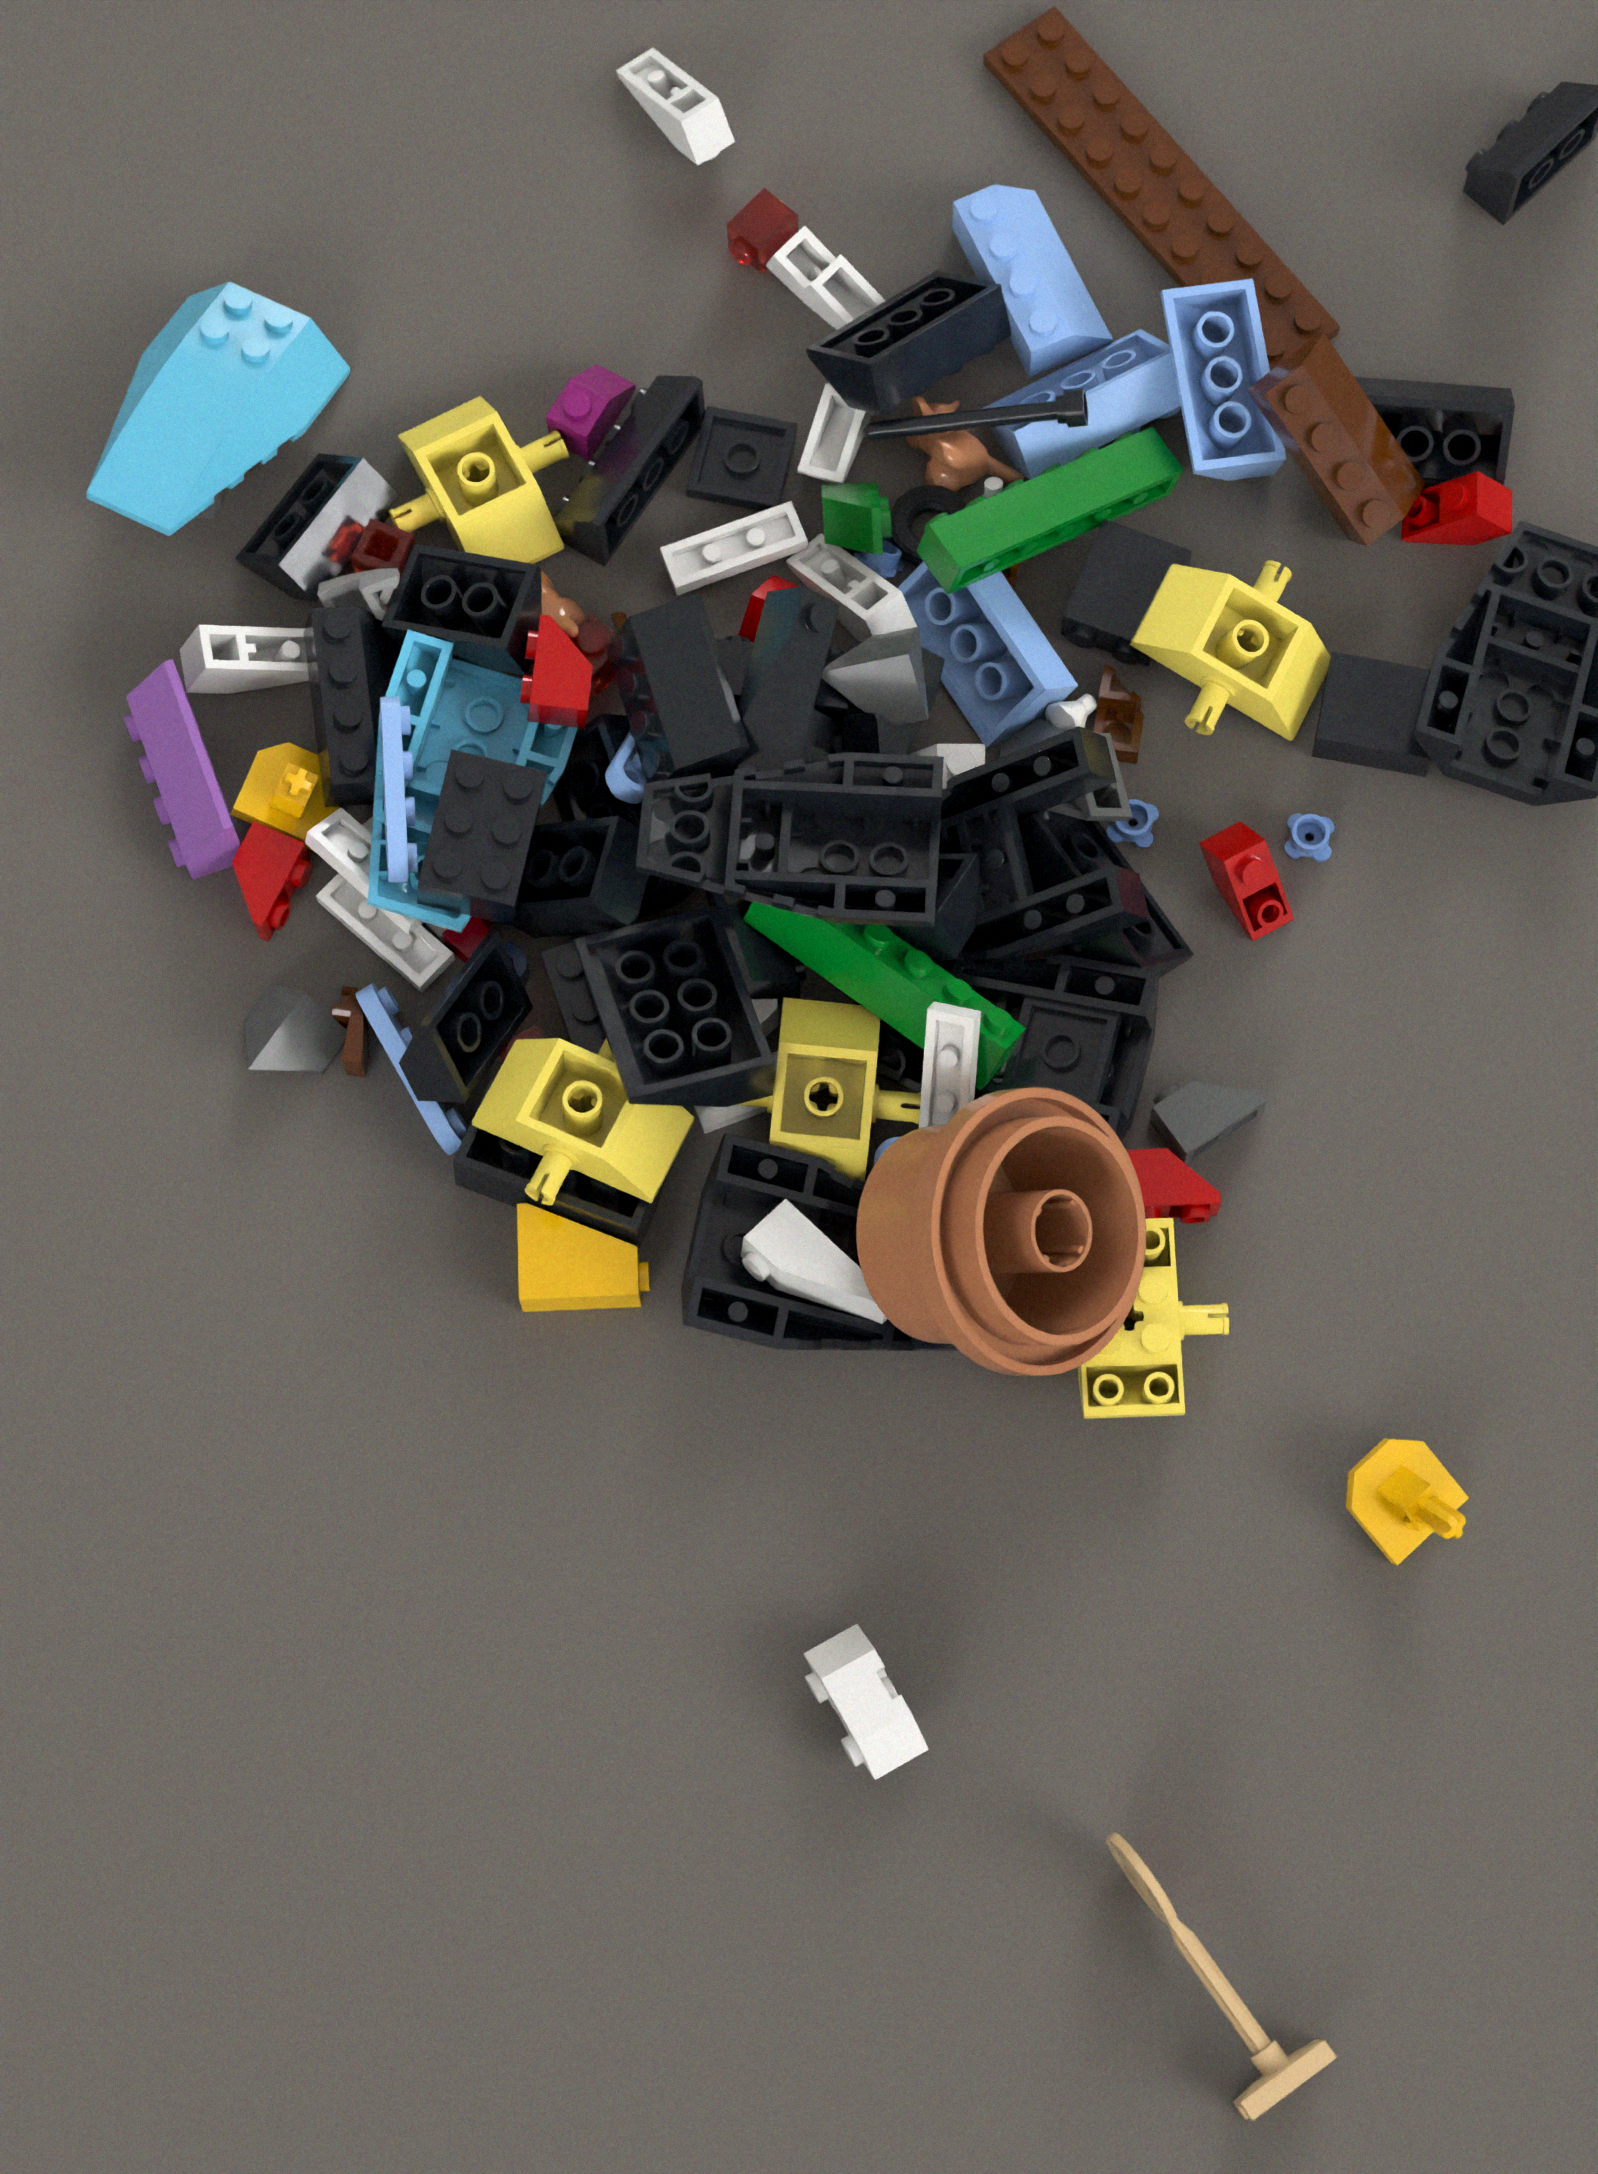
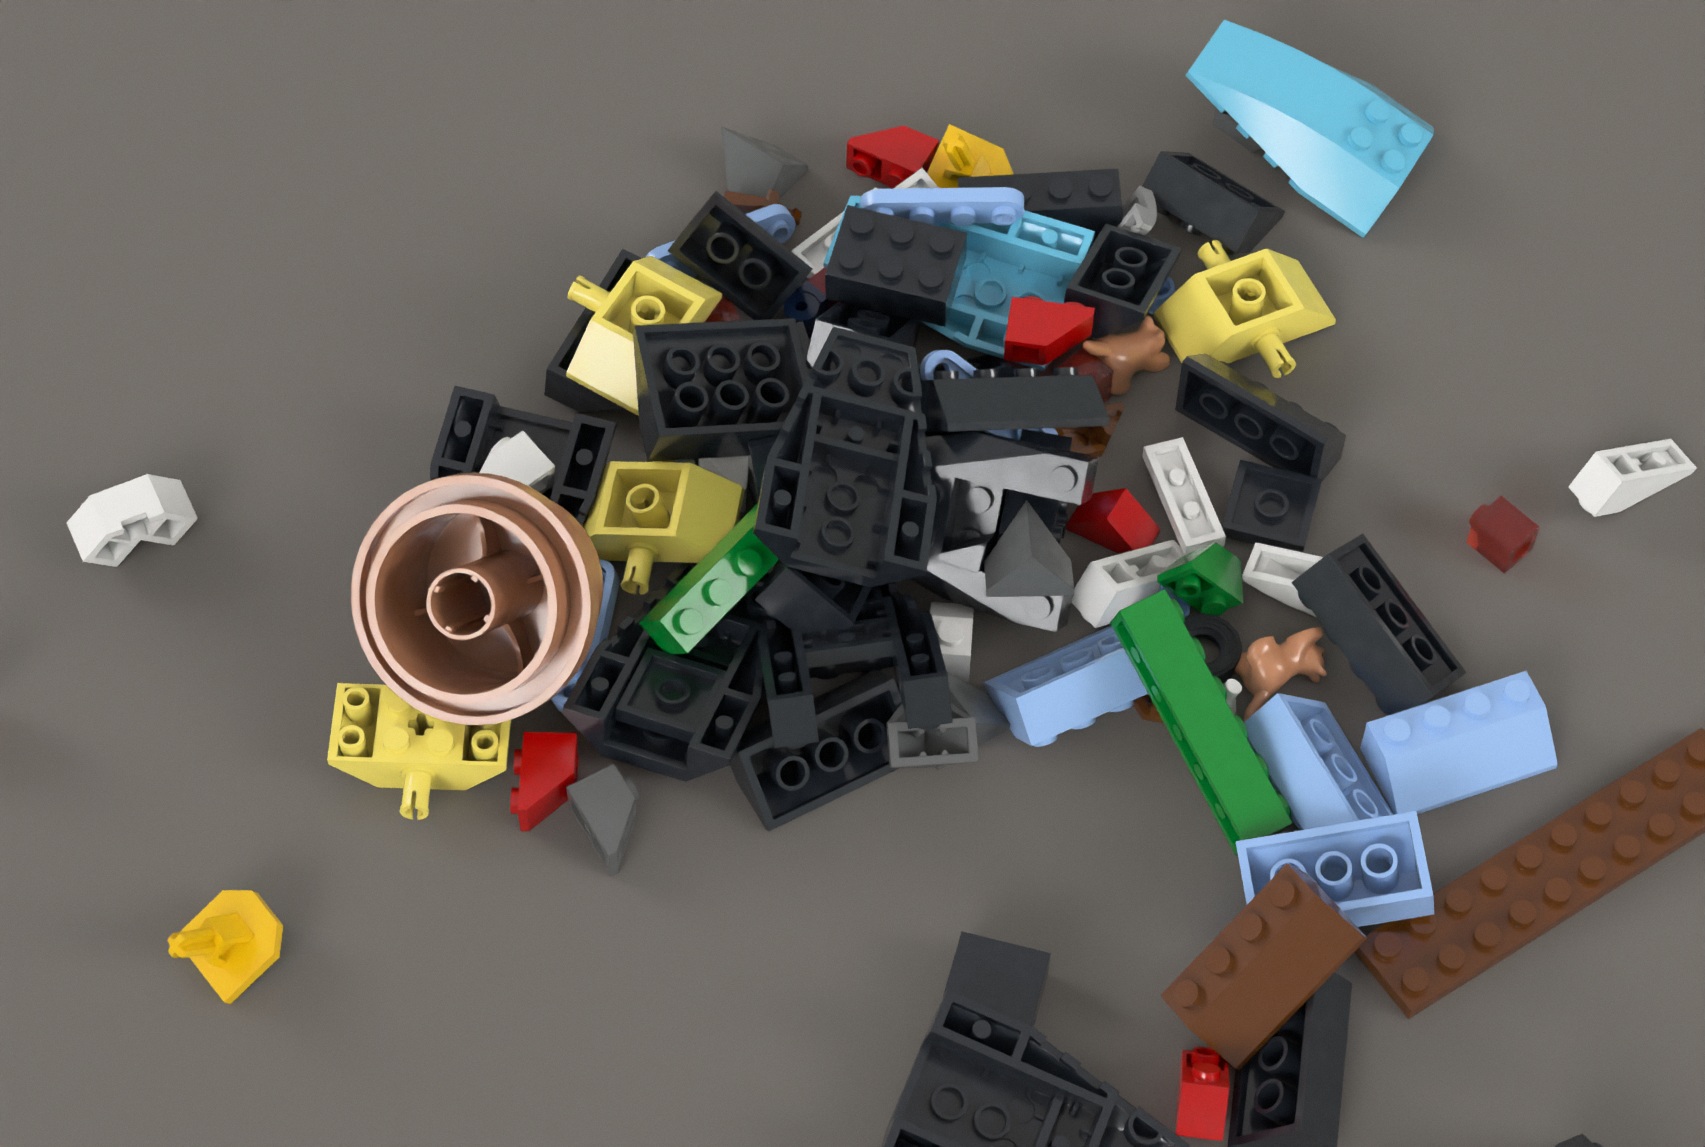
camera: 90 degrees right, 15 degrees down
(184, 773) = (994, 104): medium lavender slope -> none
(242, 658) = (1088, 134): white slope -> none
(382, 548) = (1182, 230): clear red brick -> none
(574, 1265) = (529, 342): yellow slope -> none
(588, 409) = (1324, 392): magenta slope -> none
(822, 281) = (1454, 578): white slope -> none
(948, 1062) = (650, 586): white plate -> none
(1066, 408) = (1295, 731): black piece -> none
(1070, 714) = (1005, 744): white rock -> none
(1118, 589) = (1125, 797): black brick -> none
(1120, 716) = (1002, 788): reddish brown slope -> none
(1141, 834) = (899, 778): medium blue plate -> none
(1235, 646) = (1044, 909): light yellow slope -> none
(1247, 879) = (832, 871): red slope -> none
(1312, 824) = (874, 922): medium blue plate -> none

